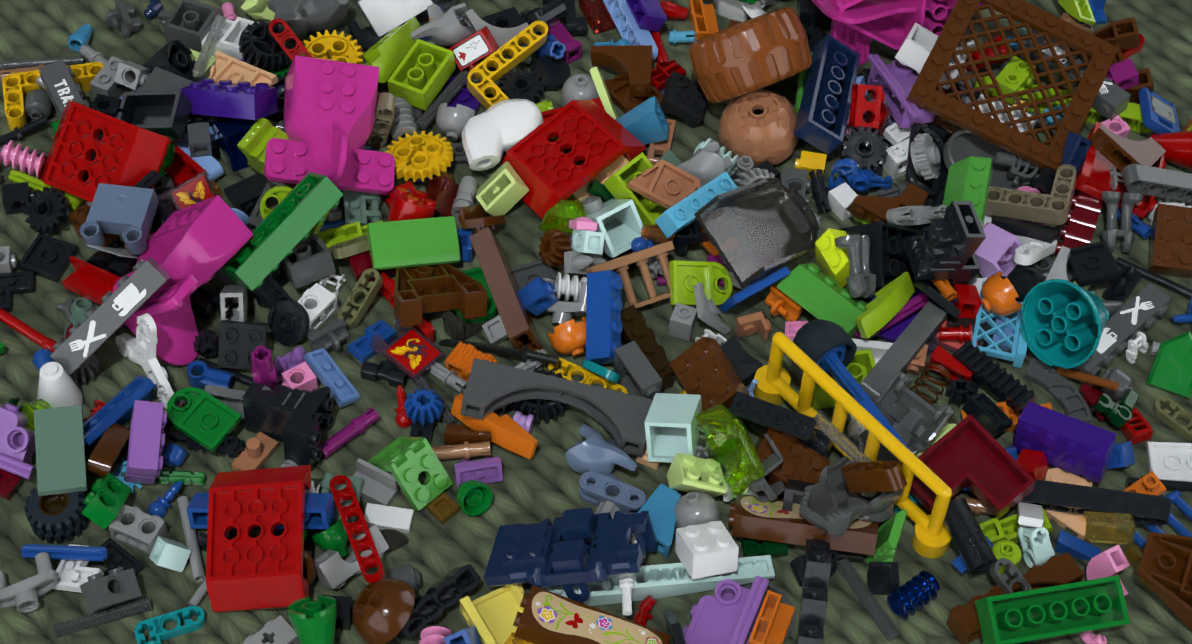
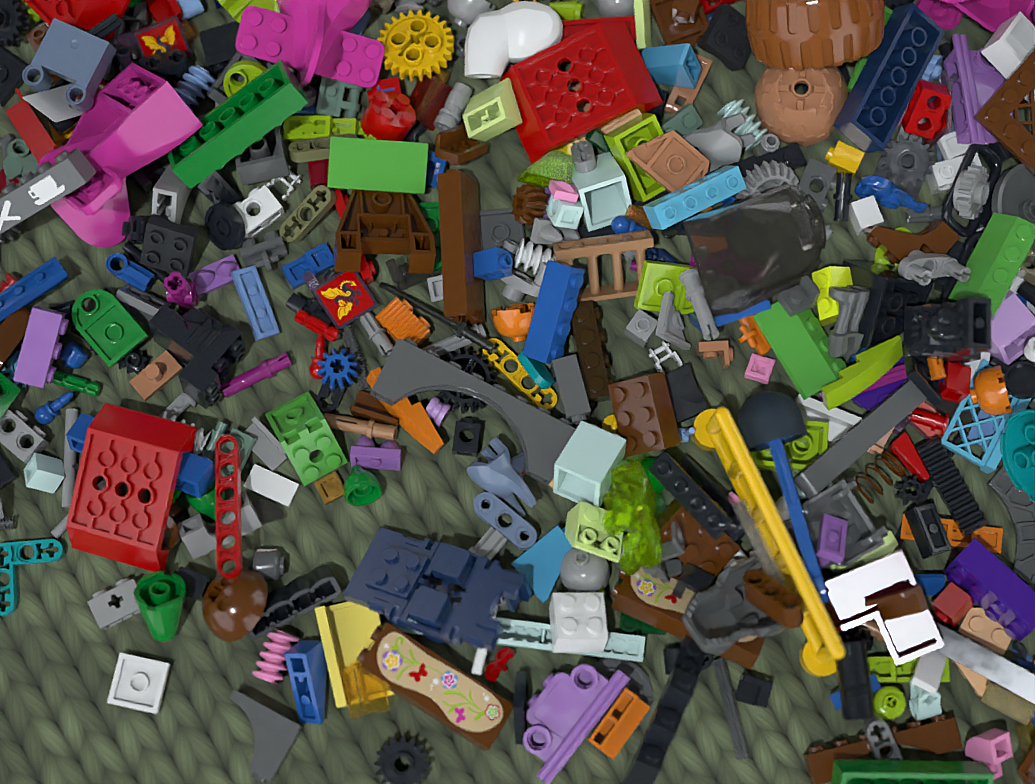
camera: 15 degrees right, 25 degrees up
(143, 352) = (64, 231): white piece -> none
(302, 374) = (228, 306): bright pink brick -> none
(394, 378) = (317, 325): none -> red axle
(555, 446) = (463, 448): none -> black brick
(723, 276) = (696, 295): none -> light grey pin
(813, 259) = (799, 297): none -> dark grey bracket
(888, 538) = (773, 654): bright green slope -> none
(907, 428) = (831, 539): none -> medium lavender tile
(913, 594) = (777, 720): clear blue piece -> none
(983, 457) = (899, 603): none -> reddish brown panel
(1075, 546) = (969, 707): blue piece -> none

